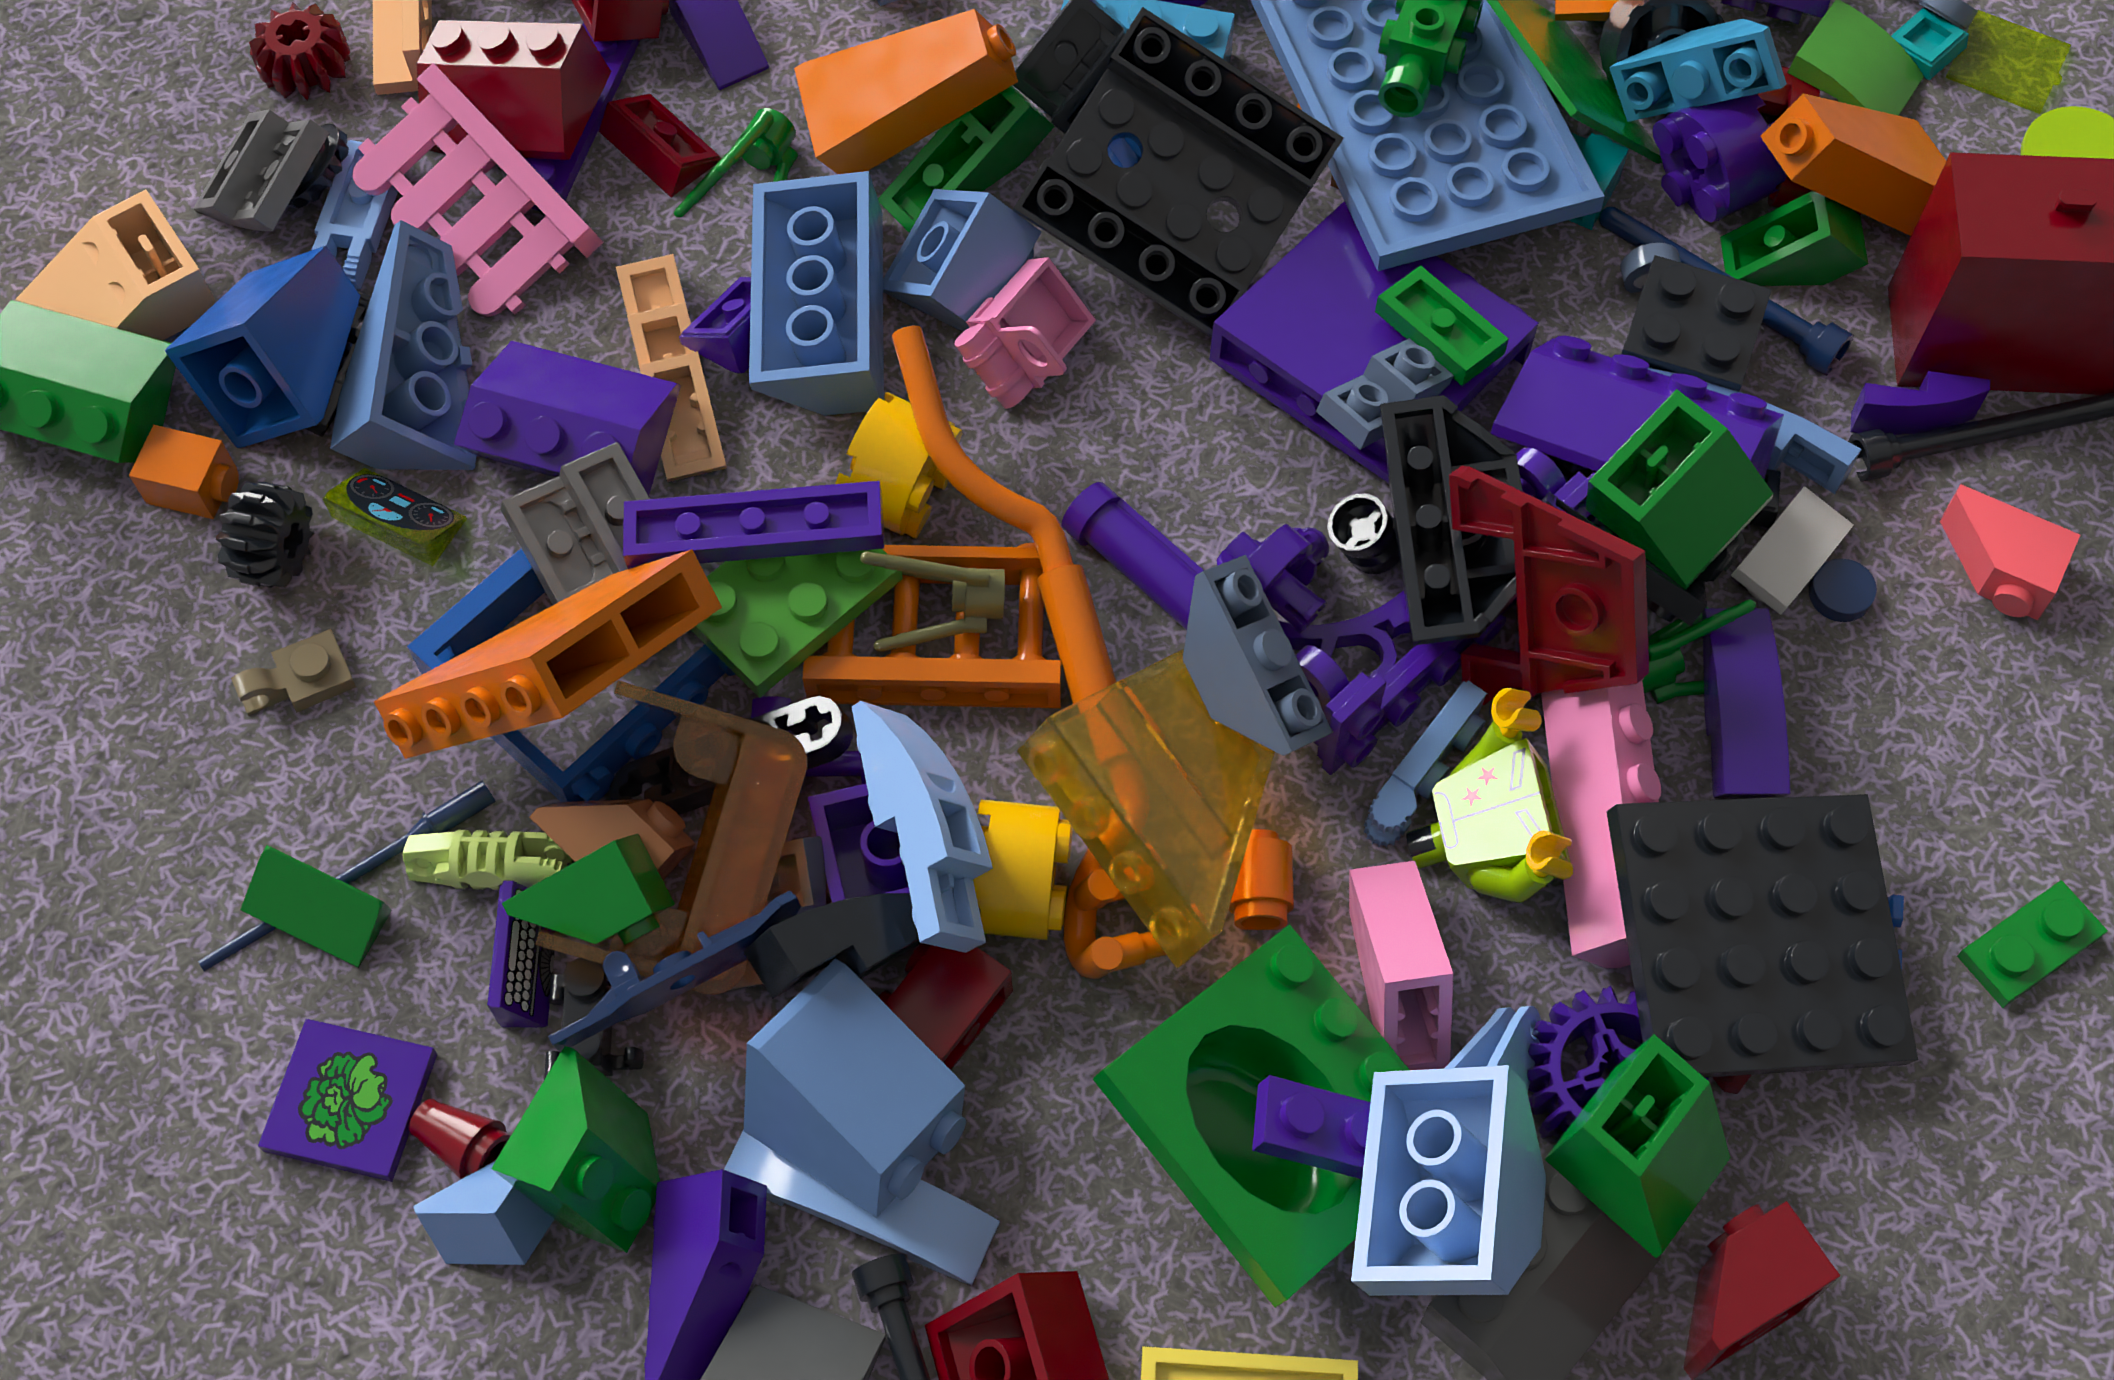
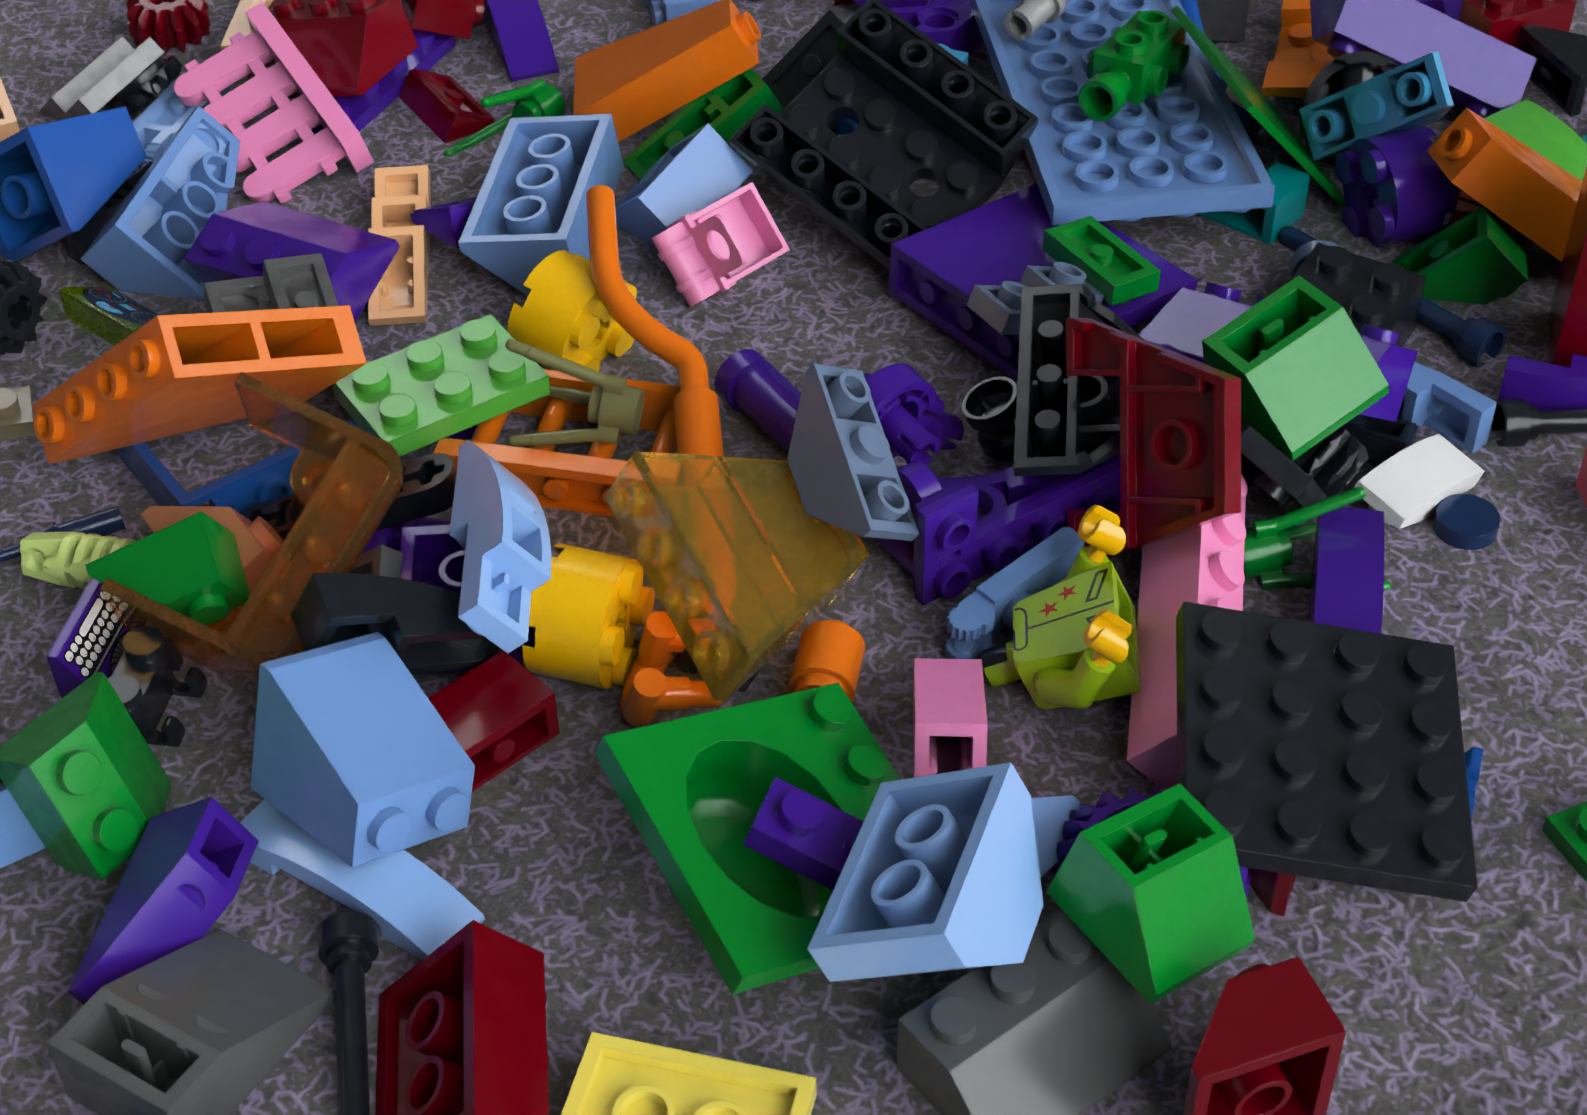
camera: 10 degrees right, 20 degrees down
(673, 975) = (198, 635): dark blue piece -> none
(755, 523) = (436, 316): dark purple plate -> none

